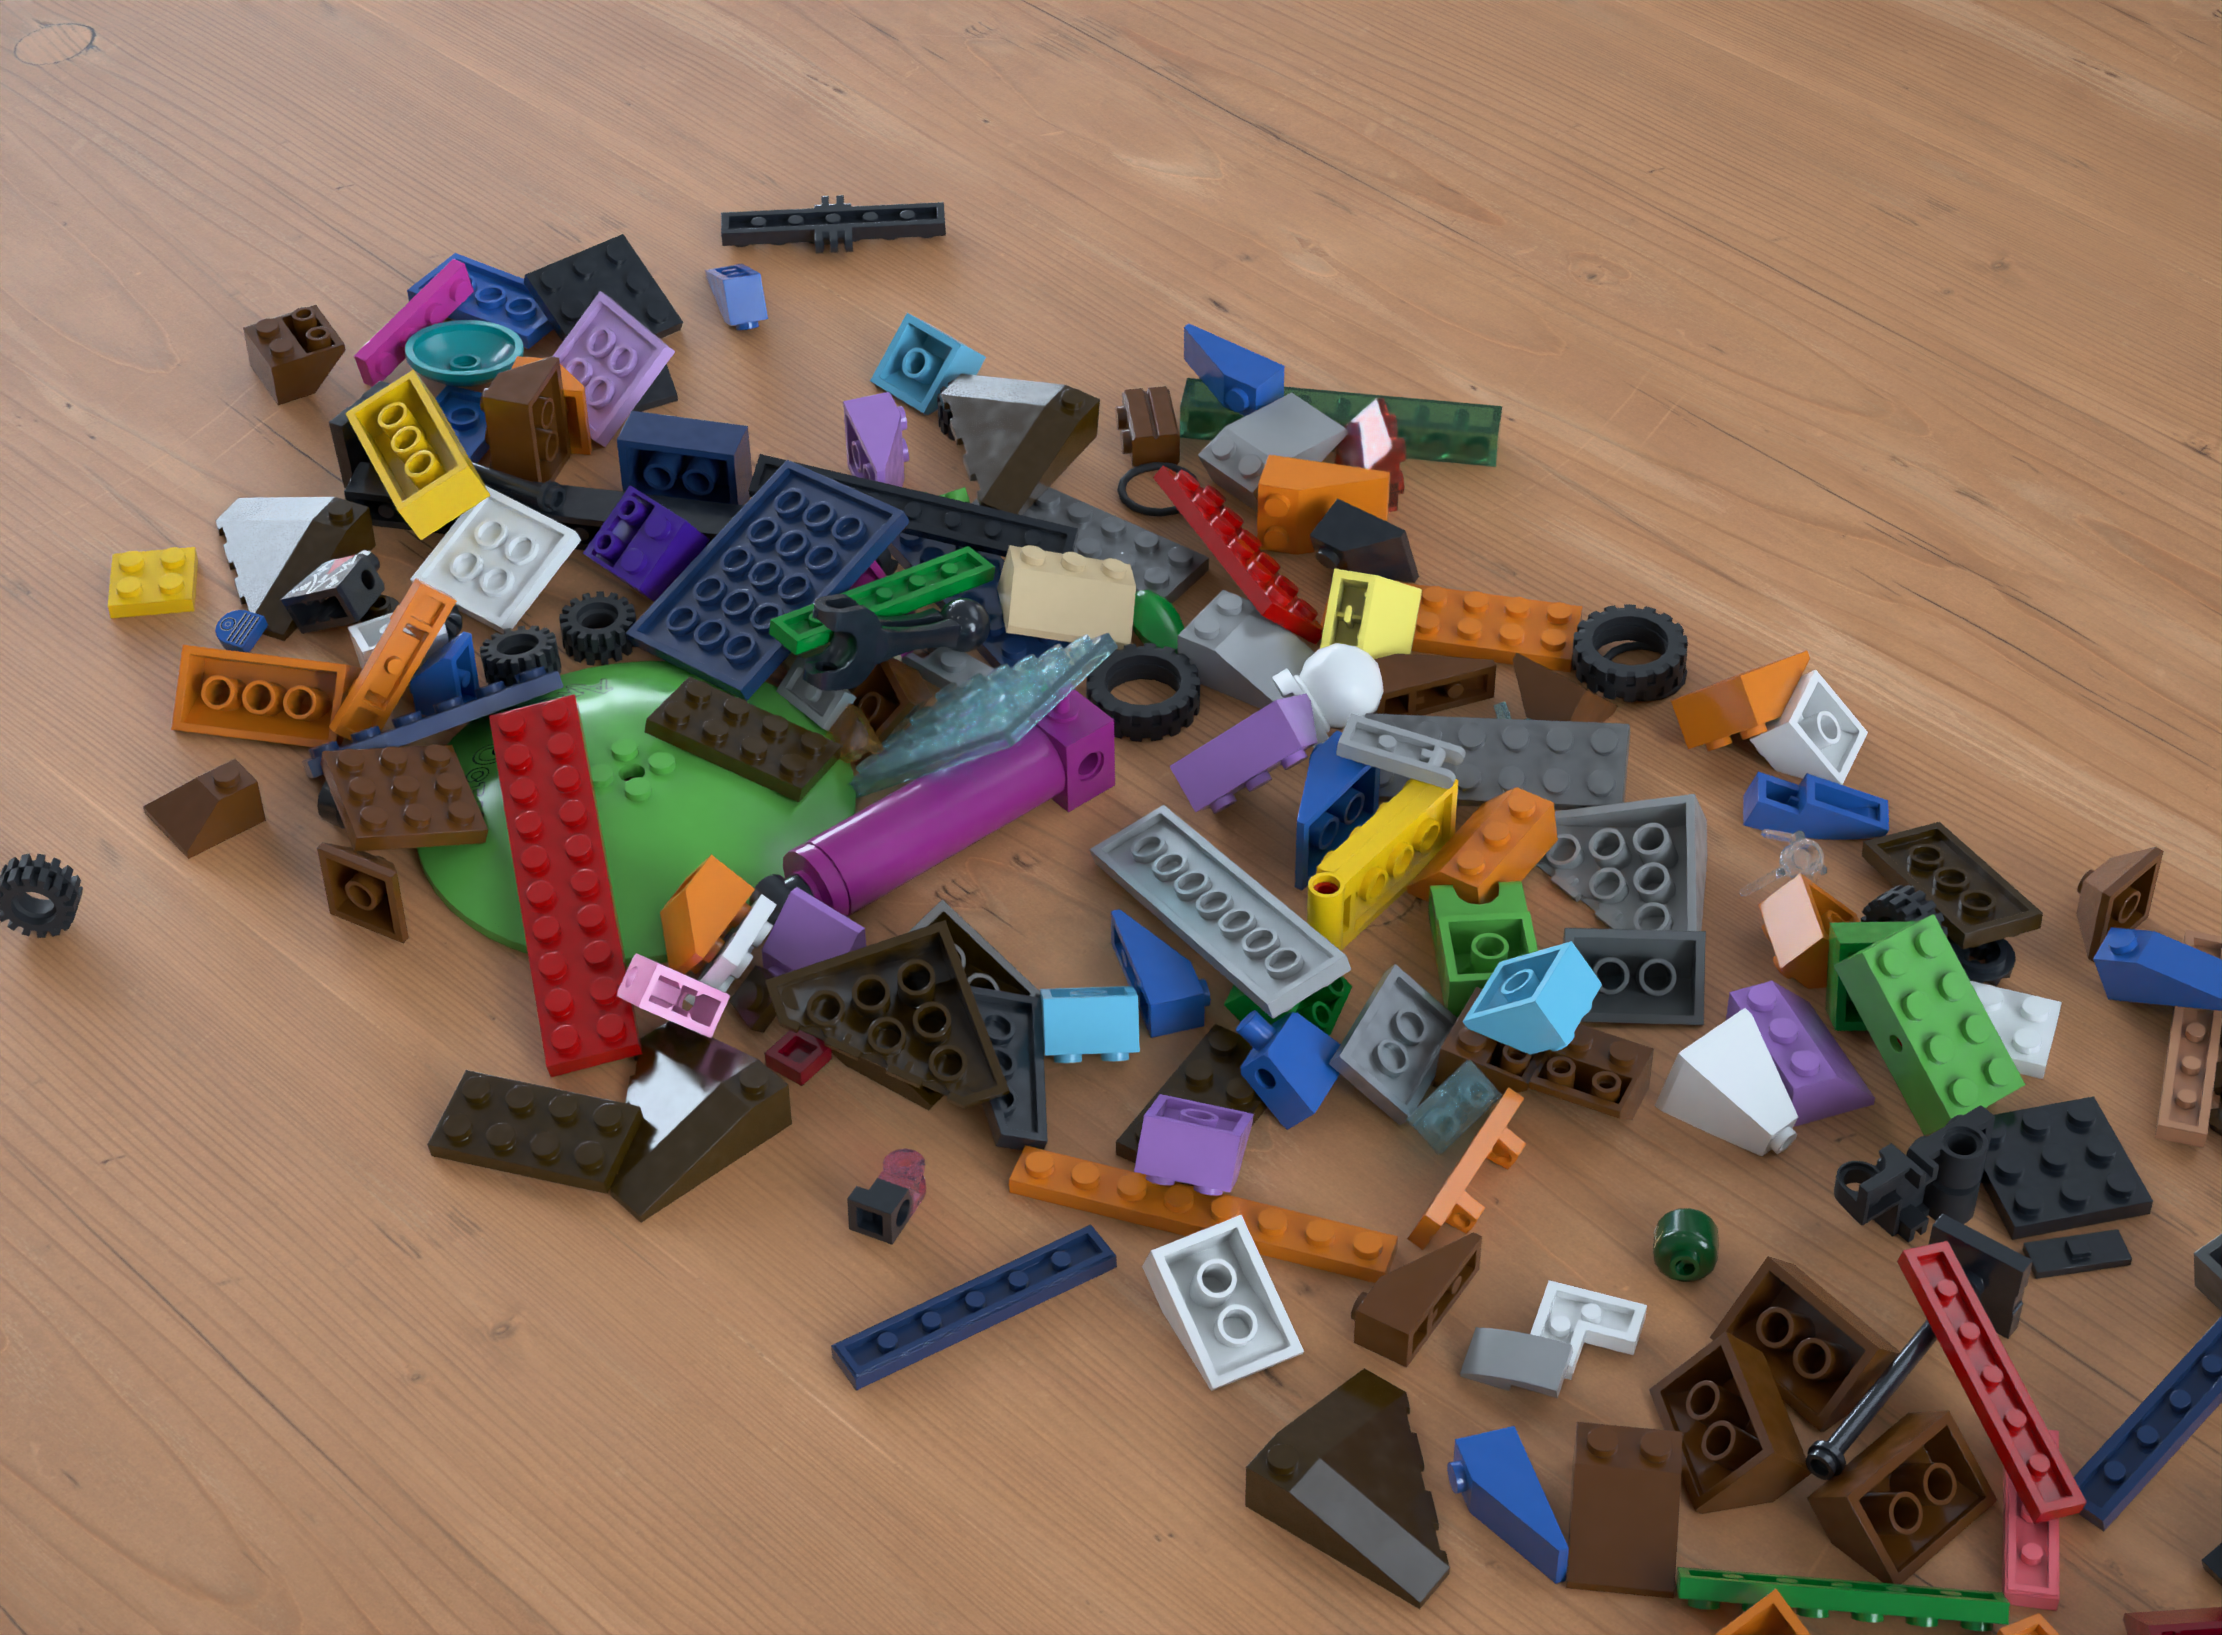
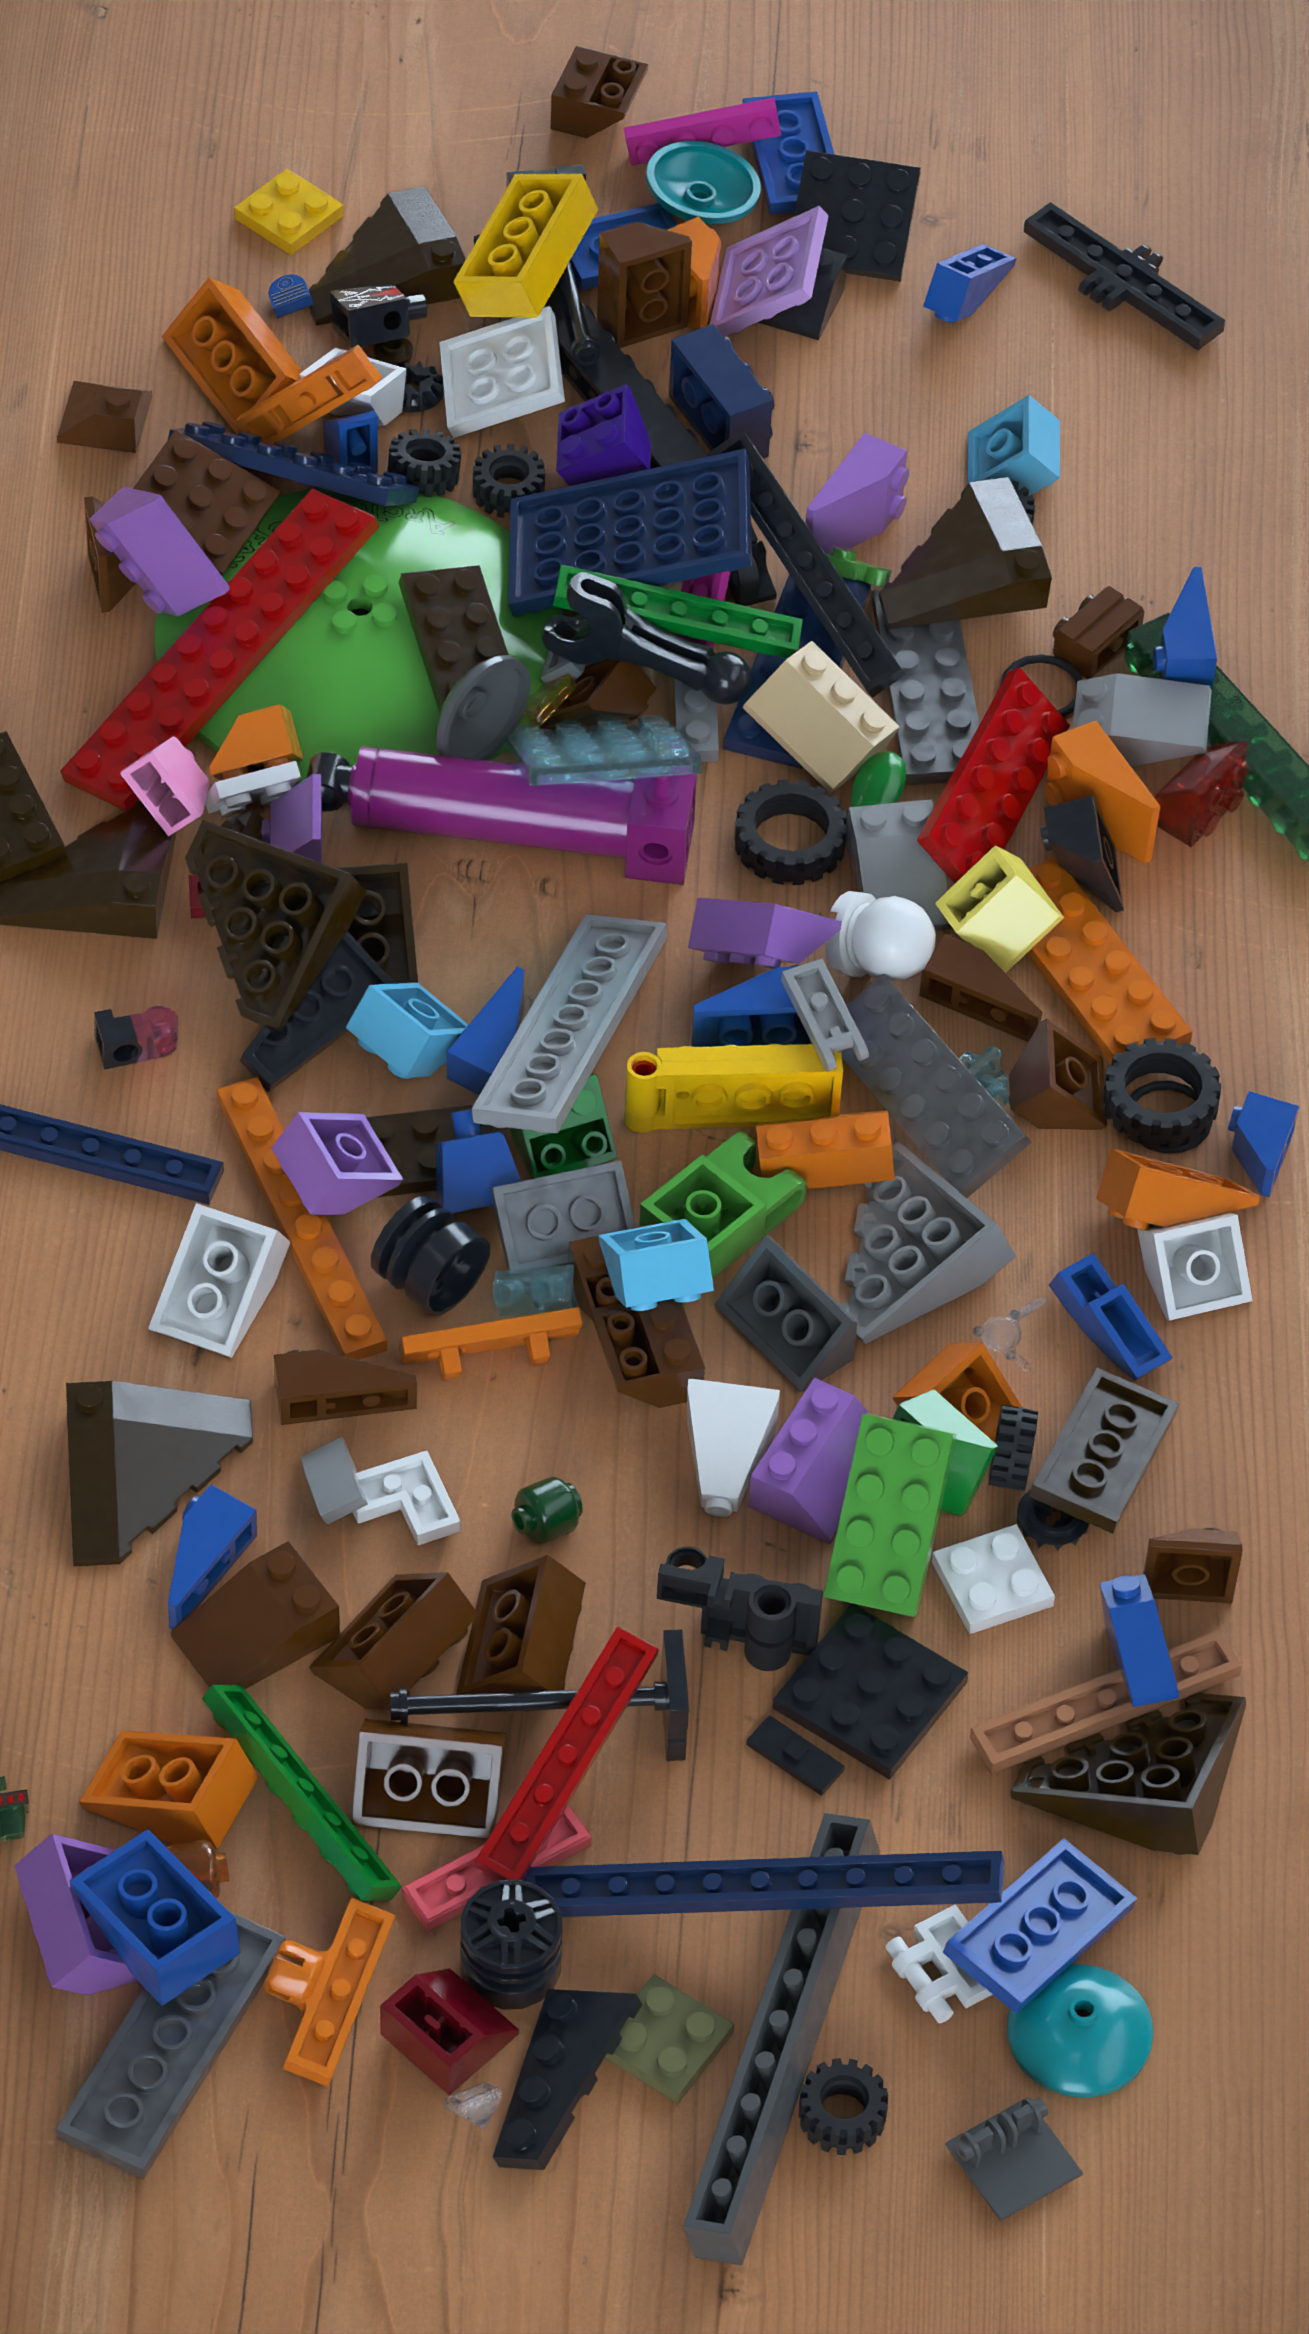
camera: 45 degrees right, 10 degrees up
(439, 835) = (157, 552): none -> medium lavender slope
(833, 760) = (483, 708): none -> dark grey dish
(1355, 1145) = (430, 1255): none -> black wheel
(1729, 631) = (1262, 1137): none -> blue slope
(2148, 1545) = (507, 1966): none -> black wheel

